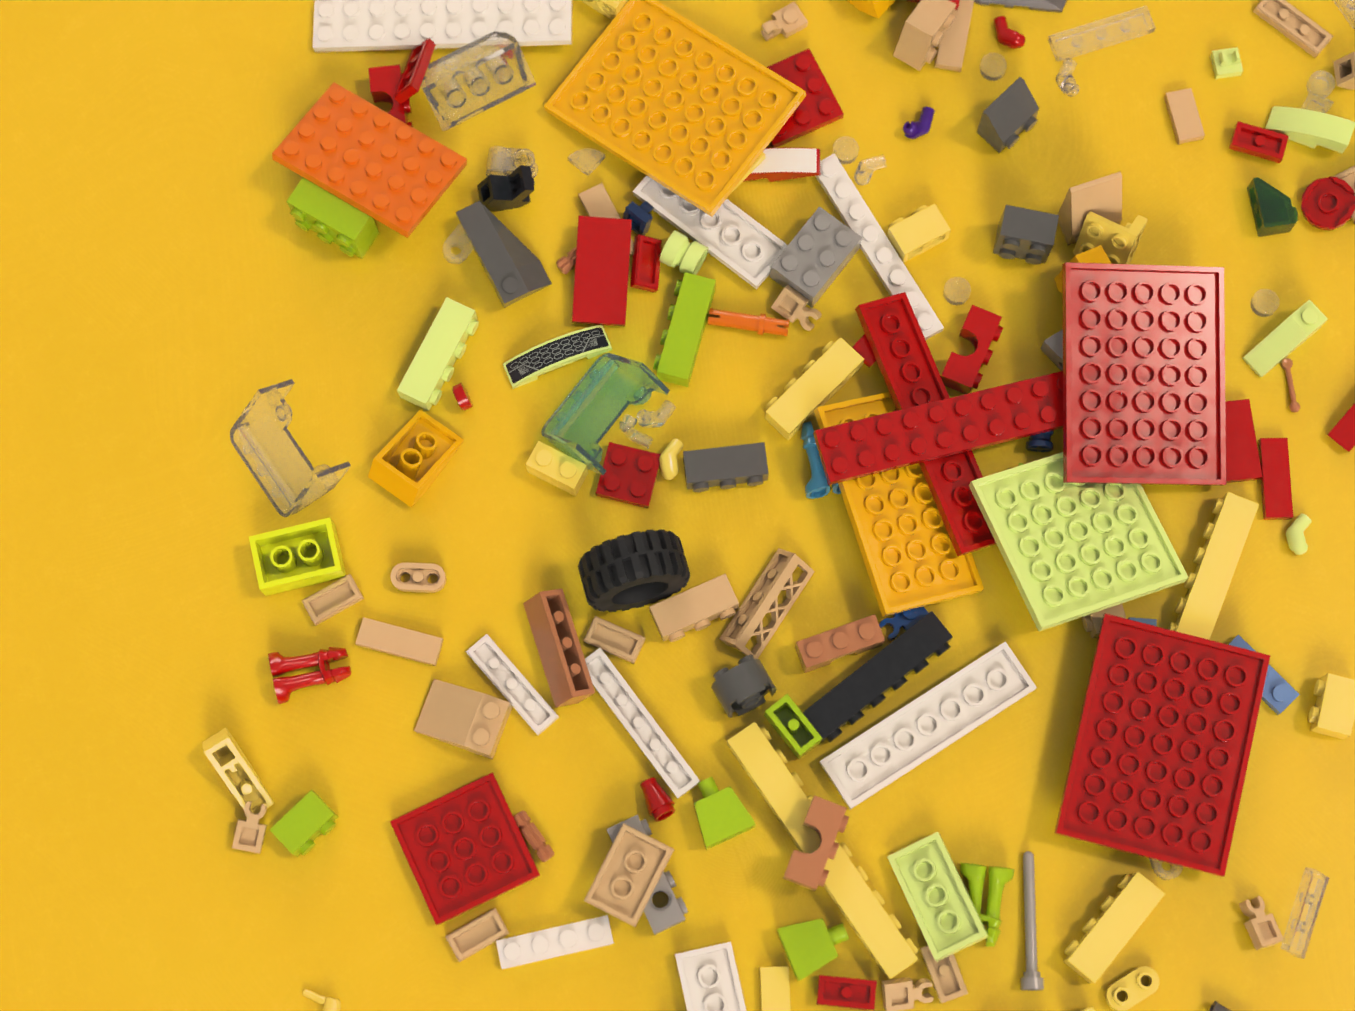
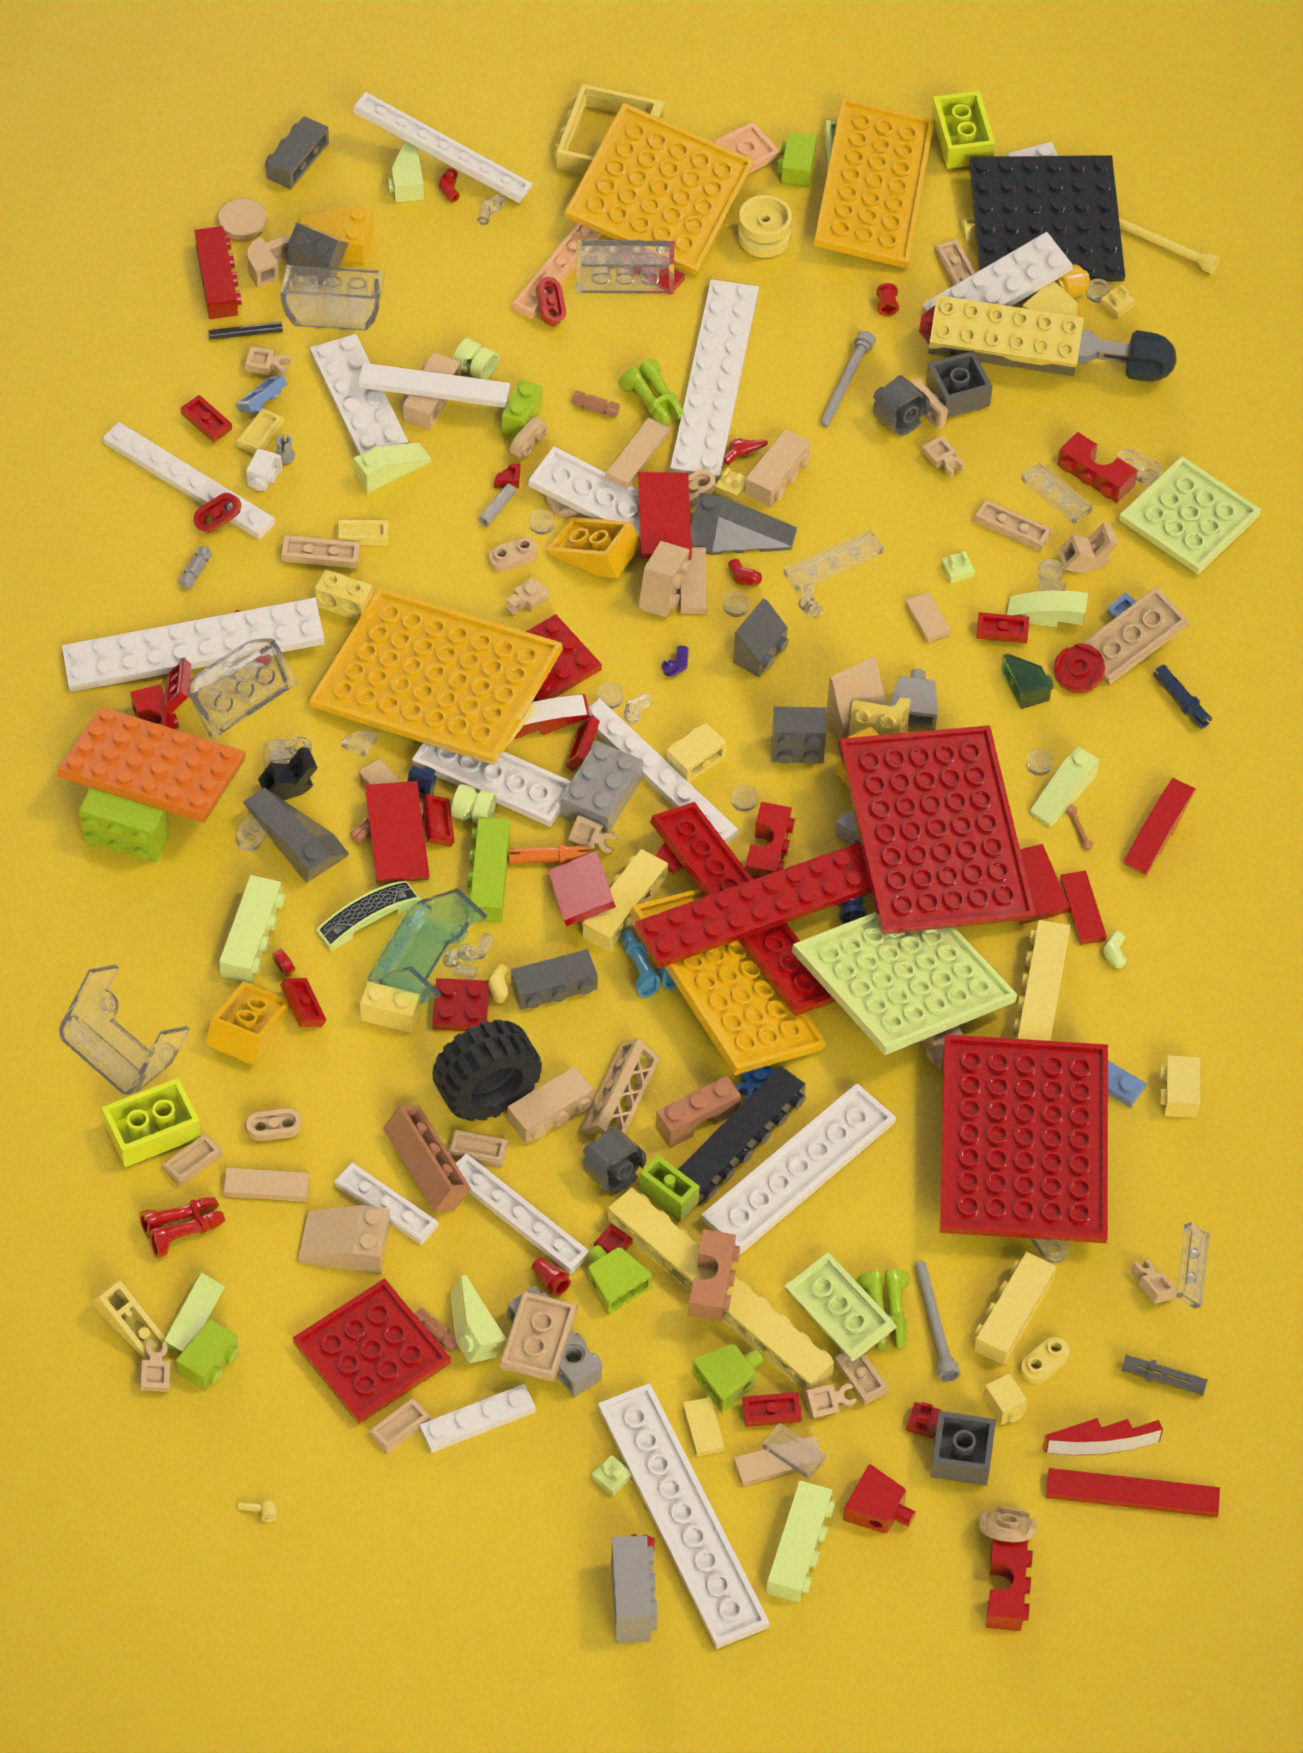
camera: 15 degrees left, 20 degrees down
(299, 774) = (193, 1313): none -> lime tile
(472, 446) = (303, 1002): none -> red plate
(569, 845) = (473, 1324): none -> yellowish green slope
(727, 770) = (613, 1238): none -> red tile
(772, 371) = (581, 888): none -> tile
(806, 202) = (582, 743): none -> red tile
(1156, 206) = (923, 699): none -> light grey torso

